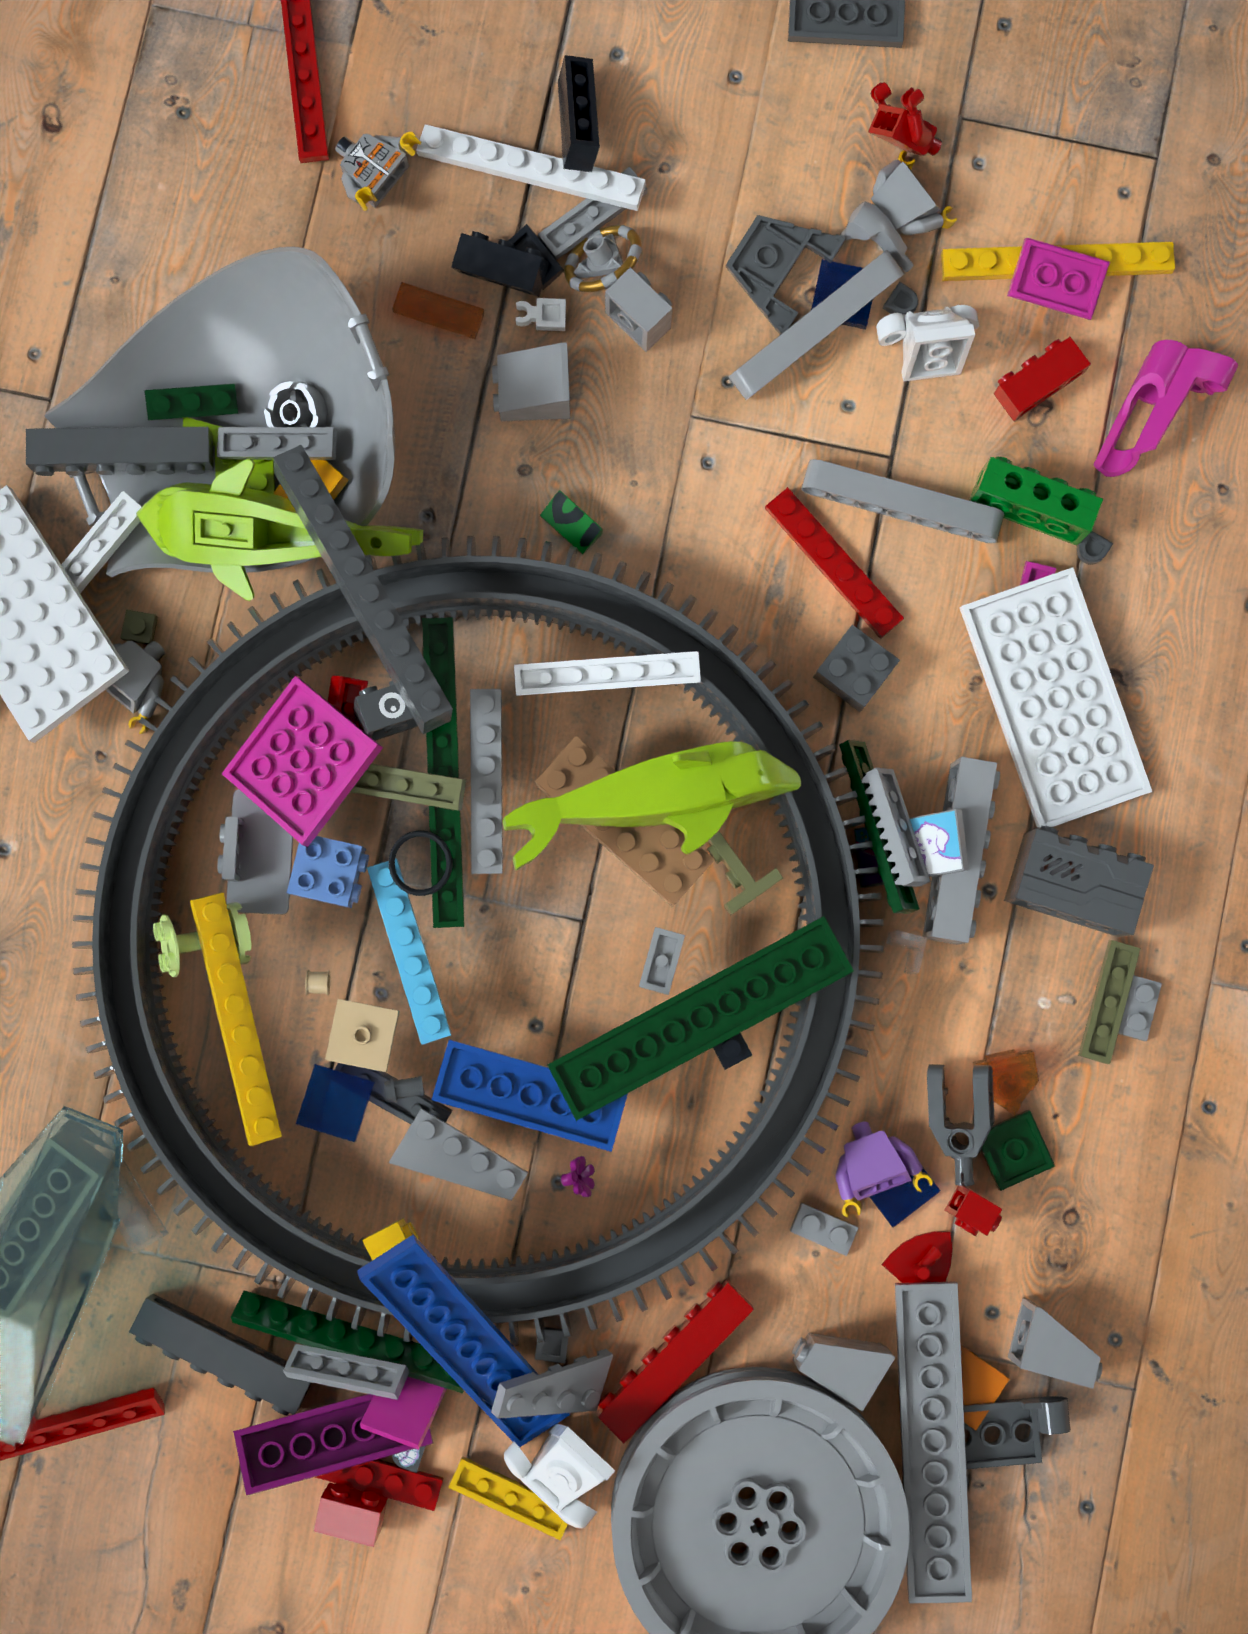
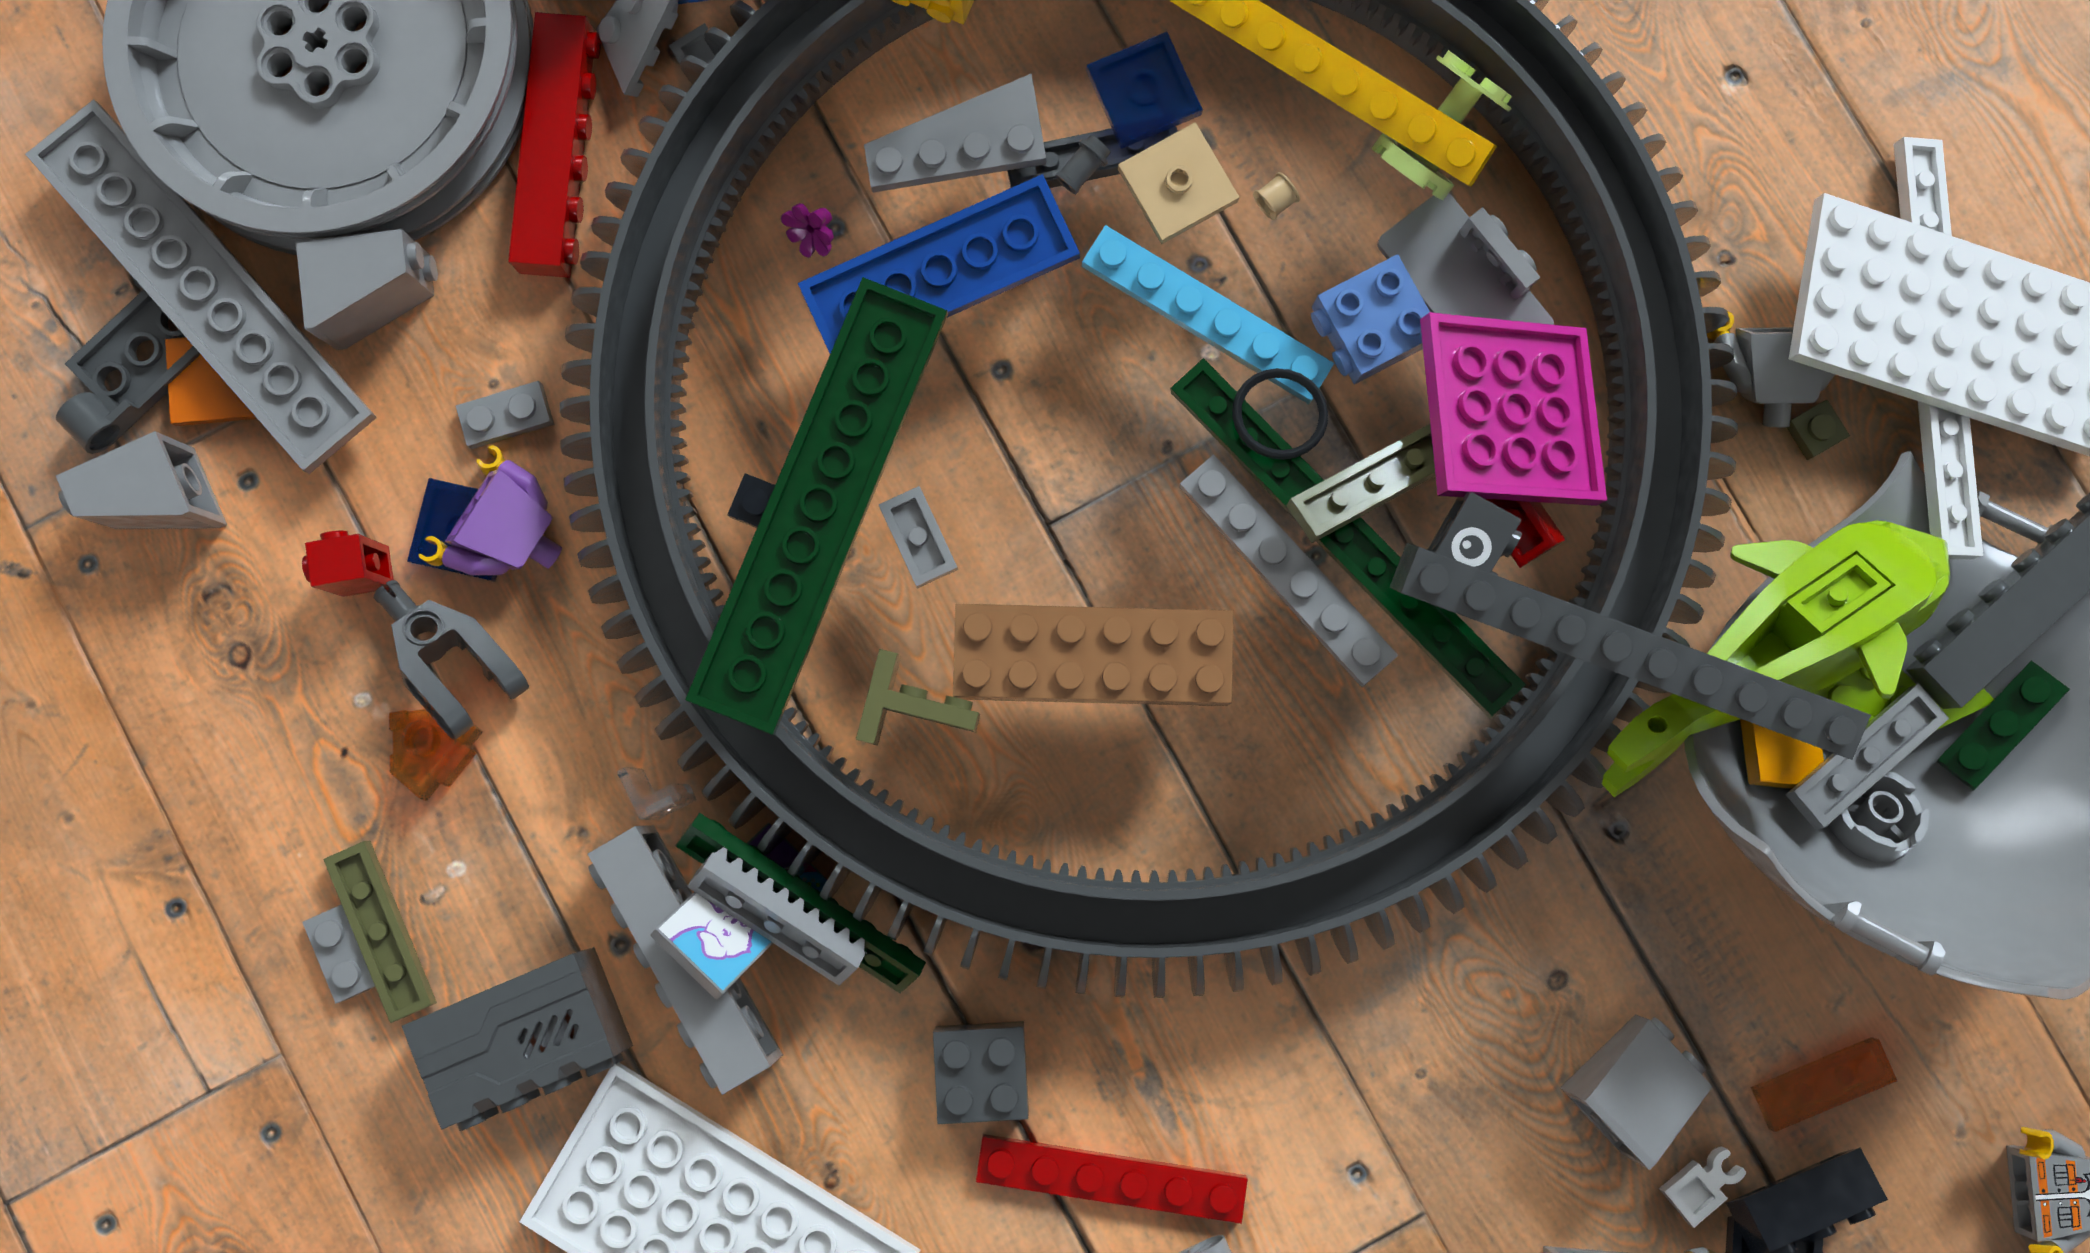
camera: 145 degrees right, 0 degrees up
(571, 522) = (1451, 963): slope -> none
(607, 673) = (1257, 807): white plate -> none
(679, 789) = (1051, 737): lime animal -> none
(922, 1258) = (370, 472): red shield -> none
(1016, 1151) = (356, 676): dark green tile -> none

